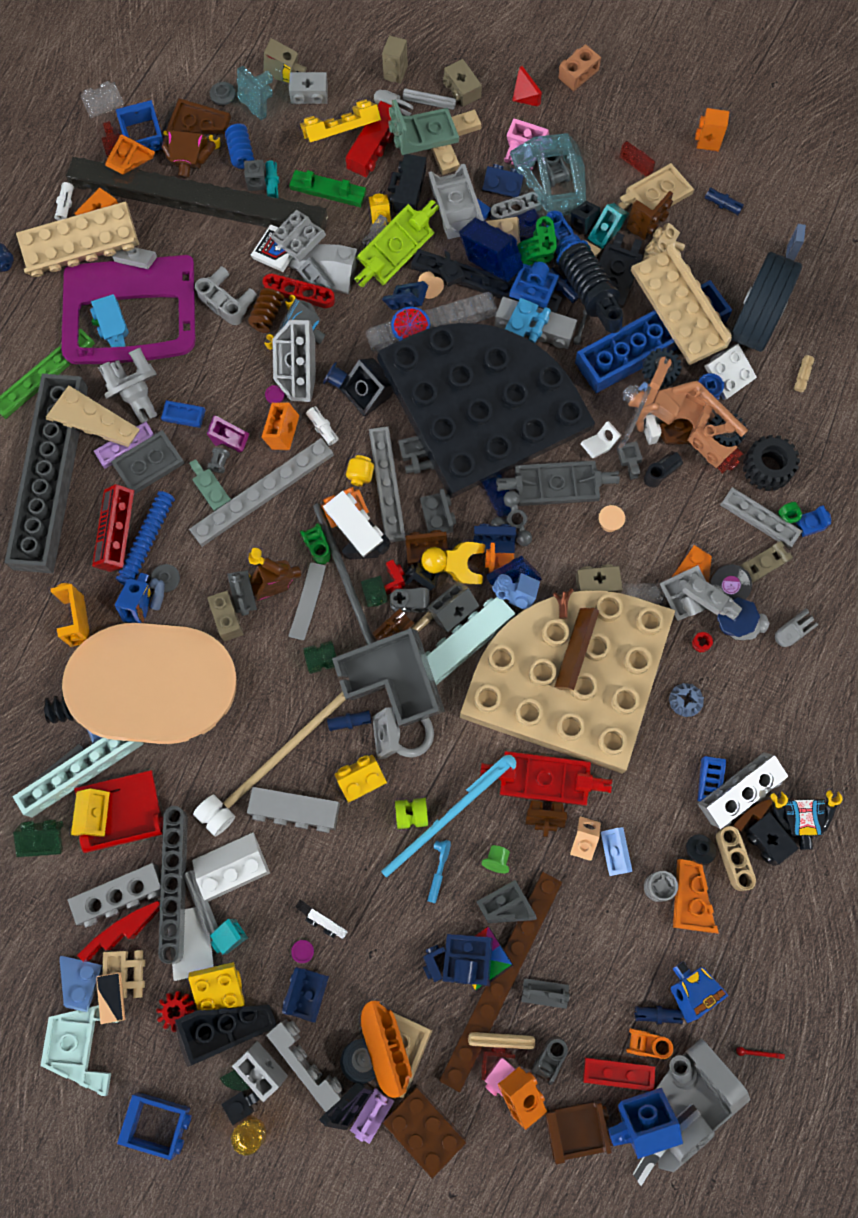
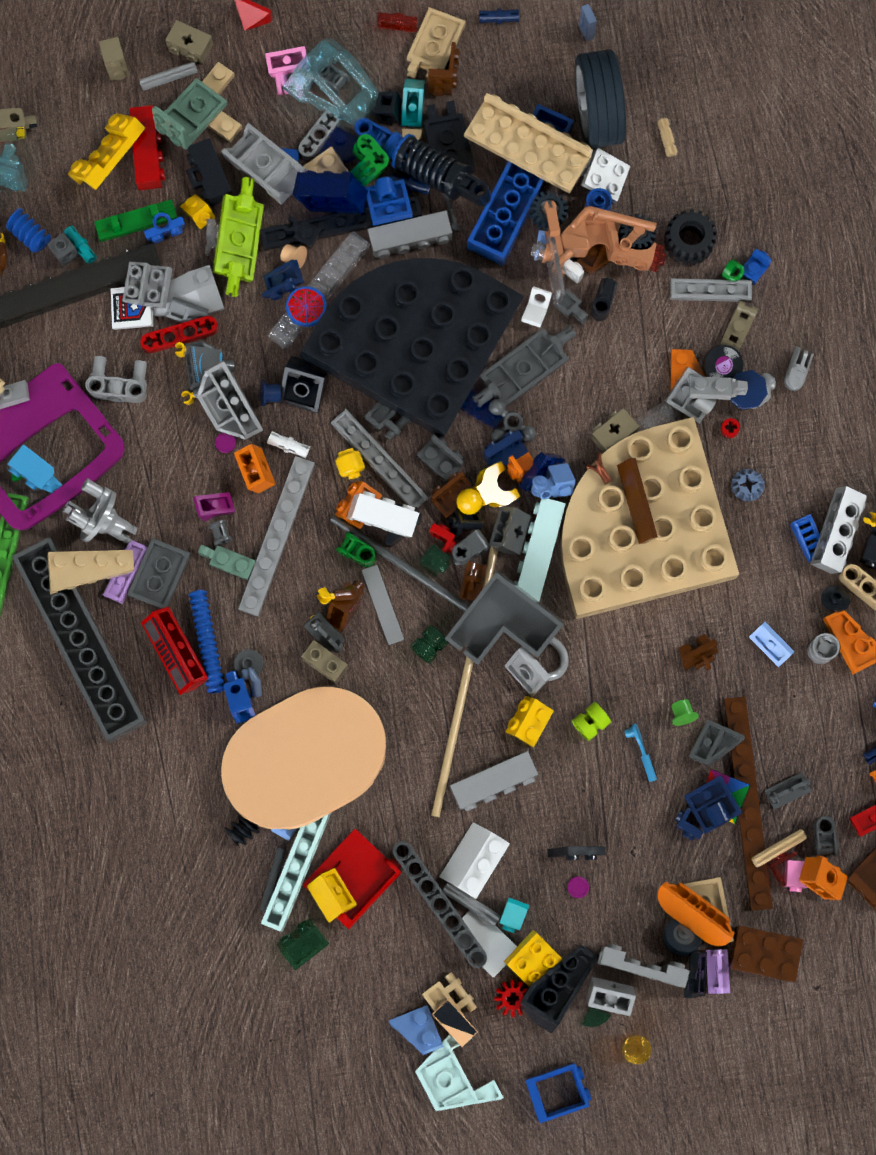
camera: 35 degrees left, 5 degrees up
(79, 632) = (210, 762): light orange panel -> none
(83, 903) = (413, 912): light grey brick -> none
(128, 926) = (427, 960): red slope -> none
(183, 414) = (158, 511): blue plate -> none
(213, 814) = (433, 829): white wheel -> none
(239, 1106) = (611, 1034): black plate -> none
(264, 310) = (163, 371): reddish brown piece -> none
(305, 994) = (604, 916): dark blue bracket -> none
(308, 87) = (40, 134): light grey brick -> none
(348, 205) = (174, 227): none -> blue plate
(349, 720) = (488, 681): dark blue pin -> none
(387, 97) = (136, 99): light grey arm -> none
(474, 791) = (630, 669): medium azure bar -> none
(503, 181) = (291, 117): dark blue bracket -> none
(522, 318) = (399, 240): dark azure plate -> none
(549, 779) = (678, 623): red plate -> none
(586, 839) = (742, 650): light nougat bracket -> none
(611, 518) = (590, 370): light nougat piece -> none
(662, 238) = (472, 92): tan brick -> none
(755, 813) = (859, 541): reddish brown slope -> none

